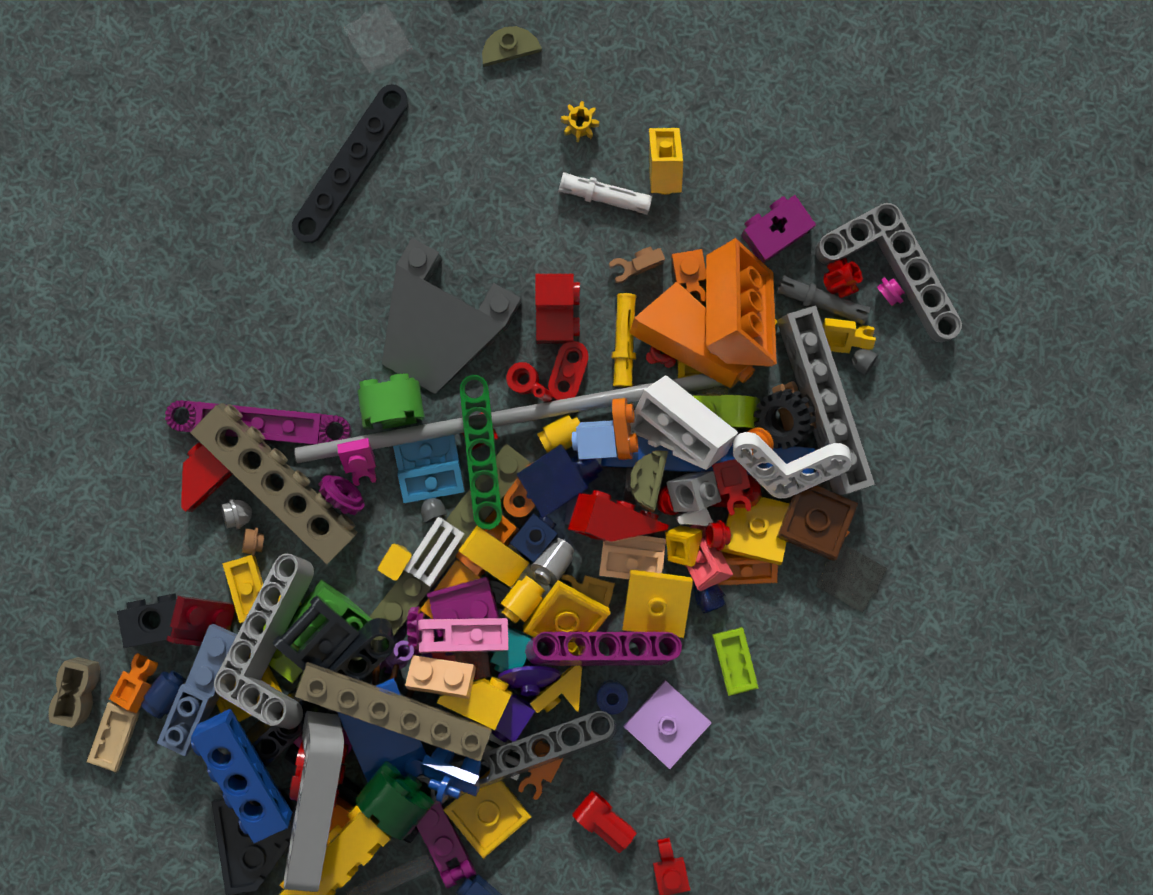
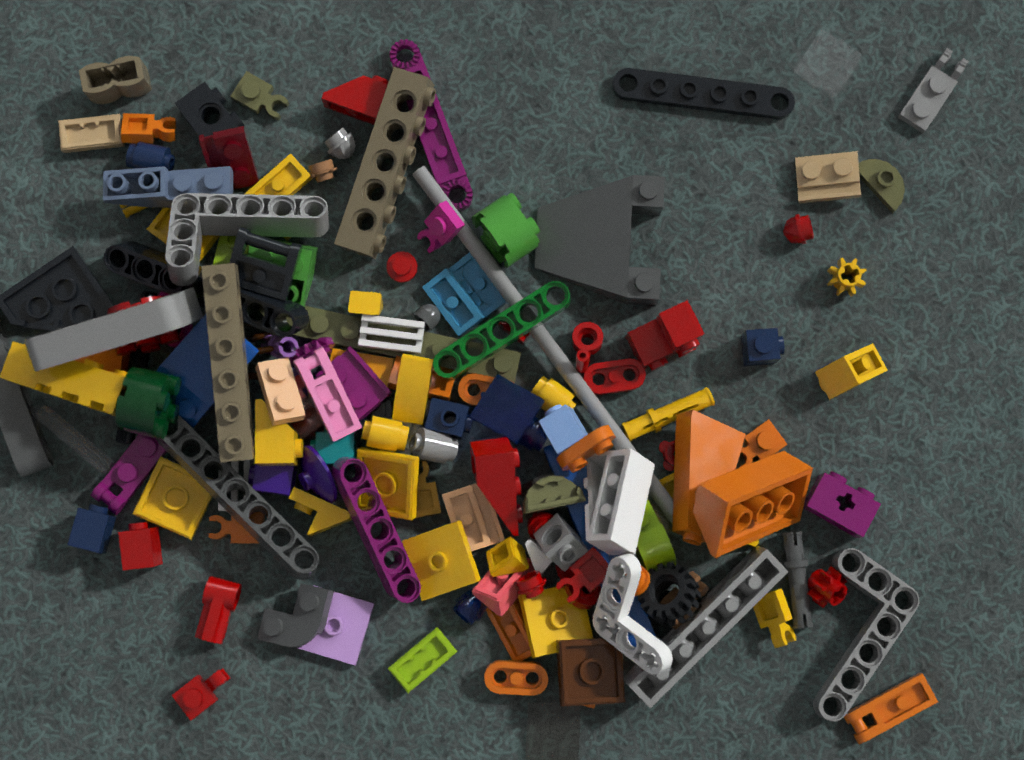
camera: 65 degrees right, 5 degrees down
(150, 568) = (256, 94): none -> olive plate
(227, 733) = (124, 252): blue brick -> none
(341, 494) = (403, 227): magenta gear -> none
(376, 512) = (402, 267): none -> red plate
(449, 779) = (190, 444): blue hips -> none
(482, 91) = (828, 177): none -> tan plate
(516, 141) = (798, 229): none -> red plate
(516, 865) = (140, 546): none -> red brick
(600, 192) = (791, 324): white pin -> none
(605, 689) = (345, 564): clear blue brick -> none
(606, 227) = (761, 346): none -> dark blue brick
(645, 260) = (750, 397): medium nougat plate -> none
(654, 754) = (304, 624): none -> dark grey plate
(792, 588) = (516, 677): none -> orange plate
(864, 360) = (760, 645): dark grey hinge -> none
(891, 291) = (838, 639): dark pink plate -> none
(971, 275) = (891, 707): none -> orange plate

